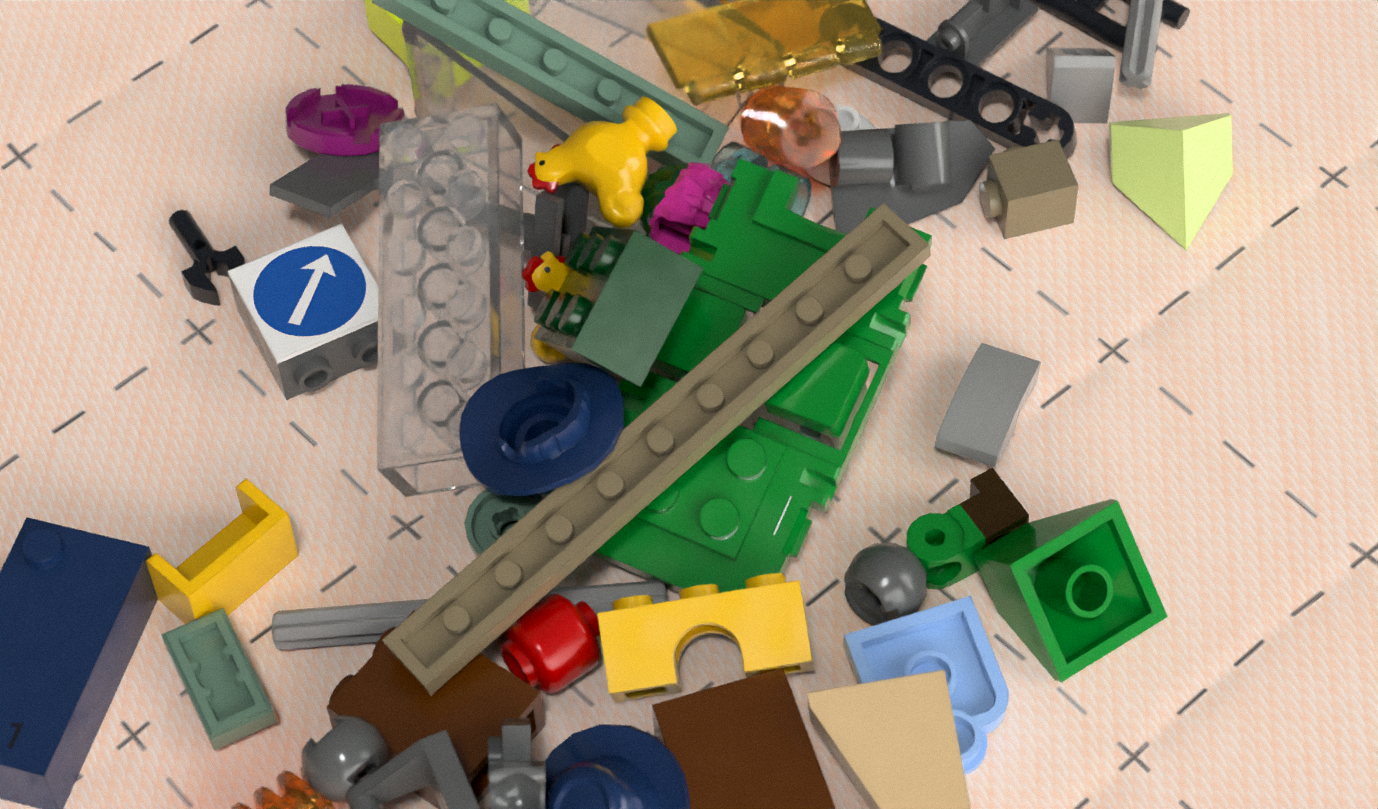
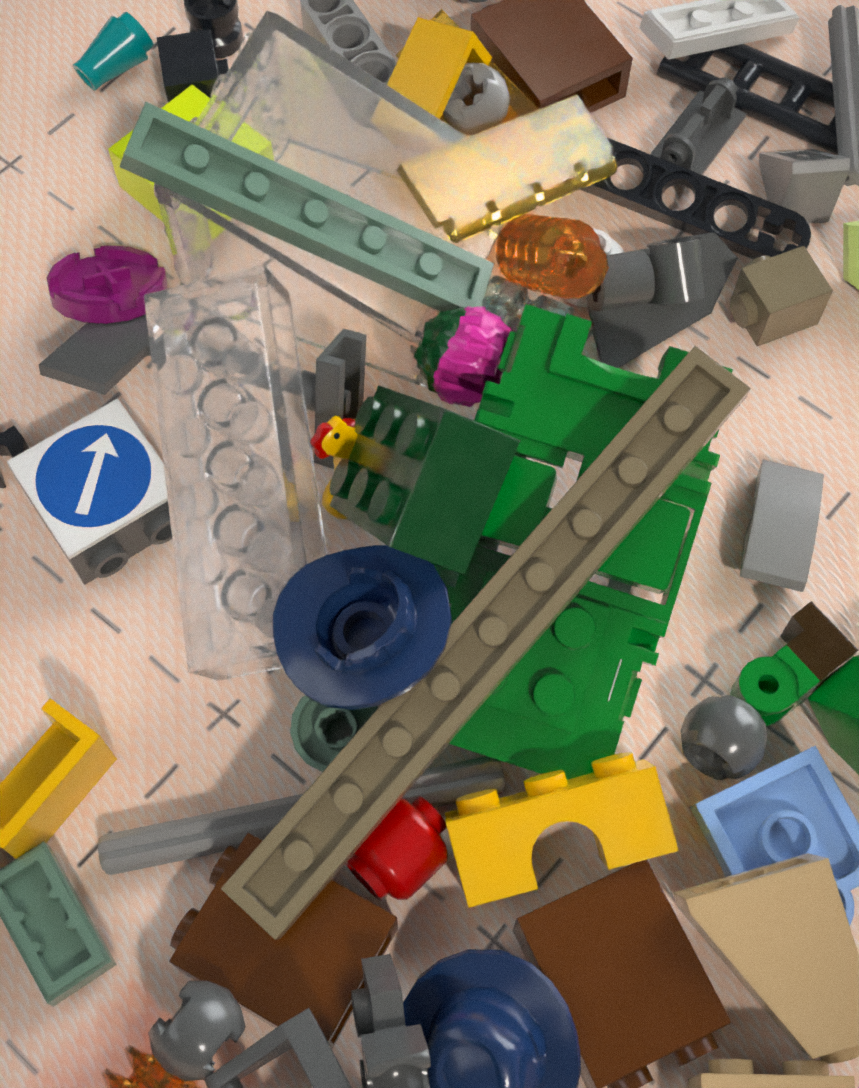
camera: 10 degrees left, 10 degrees up
(608, 160) = (385, 314): yellow animal -> none

